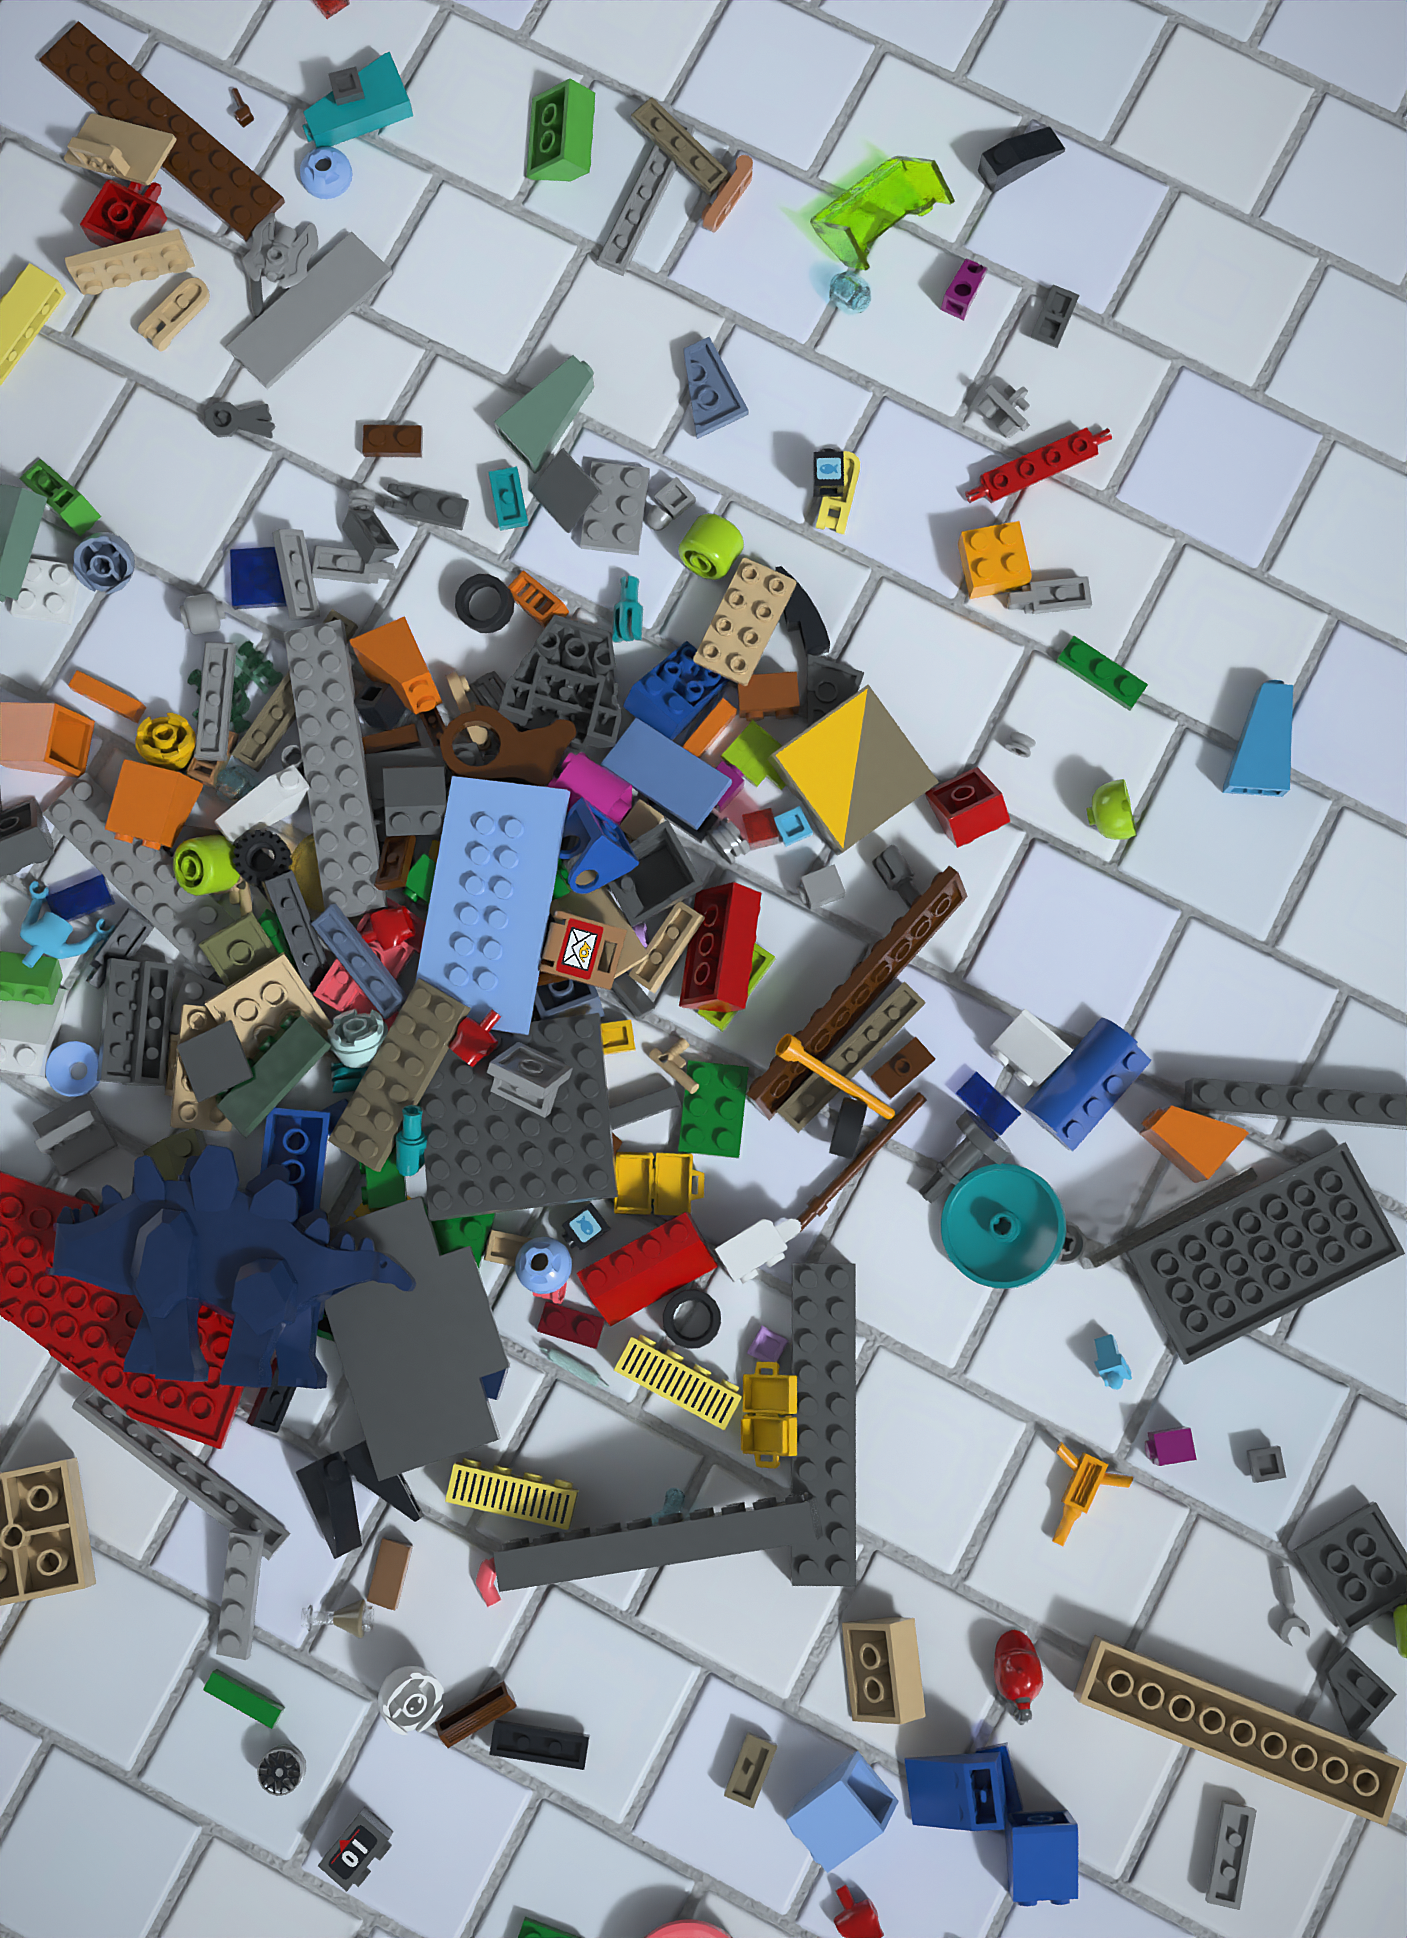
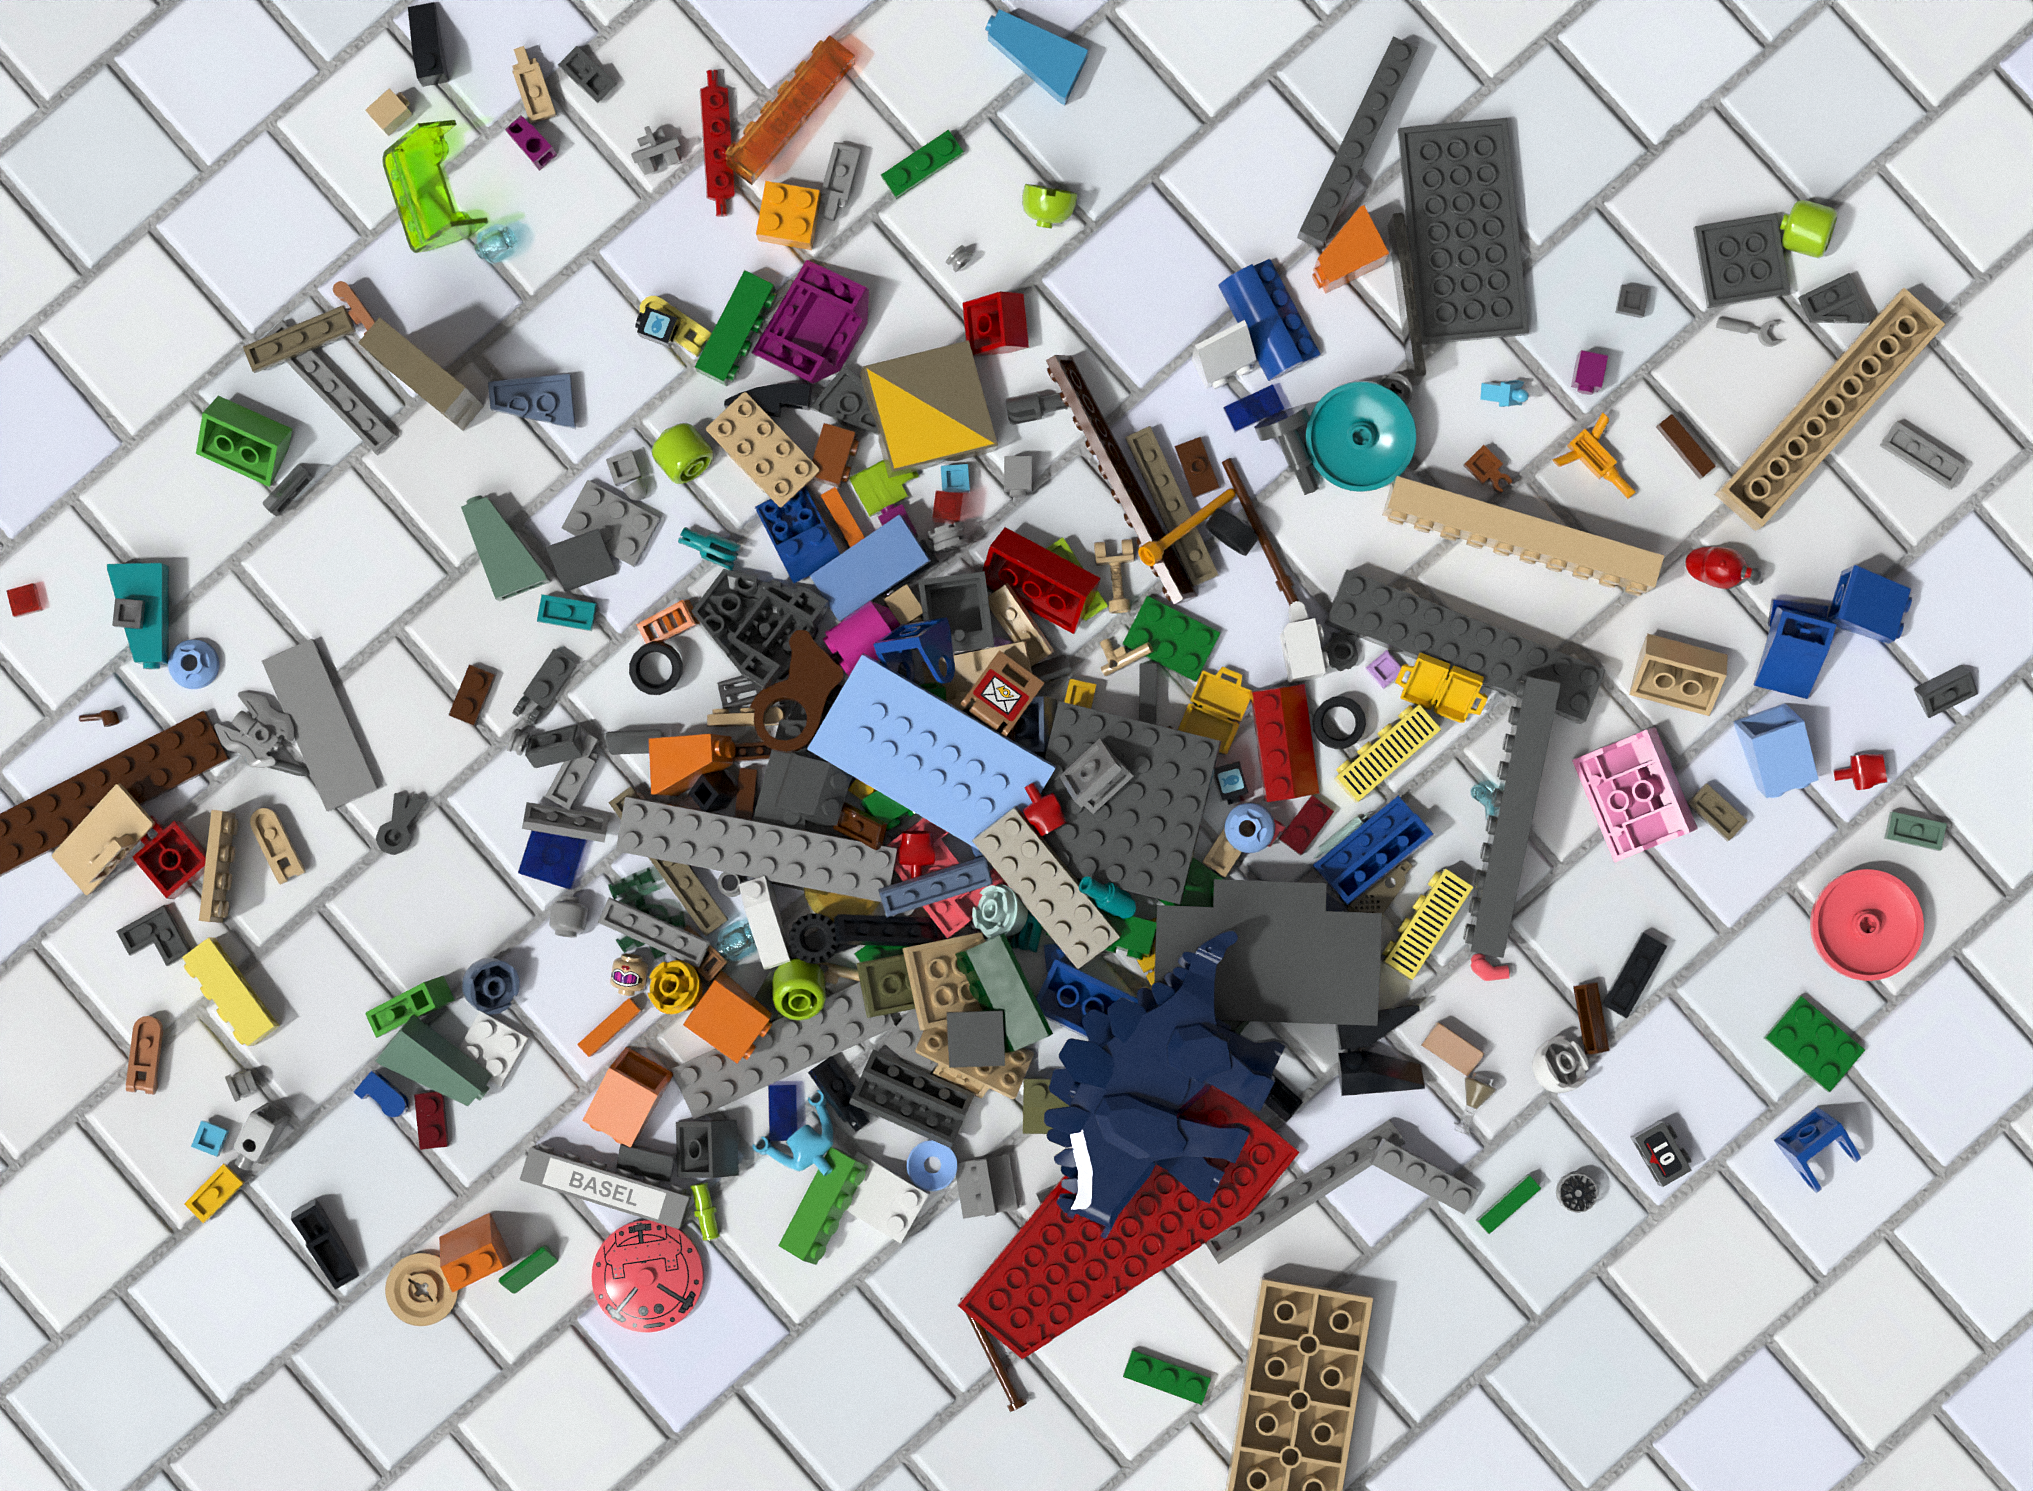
camera: 65 degrees left, 5 degrees up
(54, 236) = (156, 928): none -> dark grey tile
(166, 694) = (629, 974): none -> tan head
(401, 606) = (631, 741): none -> dark grey slope
(528, 194) = (287, 490): none -> dark grey slope
(528, 1431) = (1381, 891): none -> dark tan piece
(568, 1406) = (1373, 850): none -> blue brick
(686, 260) = (421, 374): none -> dark tan tile
(729, 1041) = (1118, 603): none -> tan bar
(735, 1671) = (1635, 794): none -> bright pink piece
(768, 1294) = (1342, 652): none -> dark grey animal
(859, 552) = (735, 328): none -> green brick
(894, 628) = (815, 324): none -> magenta slope
(940, 144) = (389, 111): none -> tan brick
(965, 1443) = (1523, 536): none -> tan brick
(1020, 269) = (532, 87): none -> tan hinge
(1025, 1372) = (1485, 466): none -> dark orange plate
(1102, 519) = (790, 109): none -> clear orange brick
(1133, 1583) = (1685, 446): none -> reddish brown piece

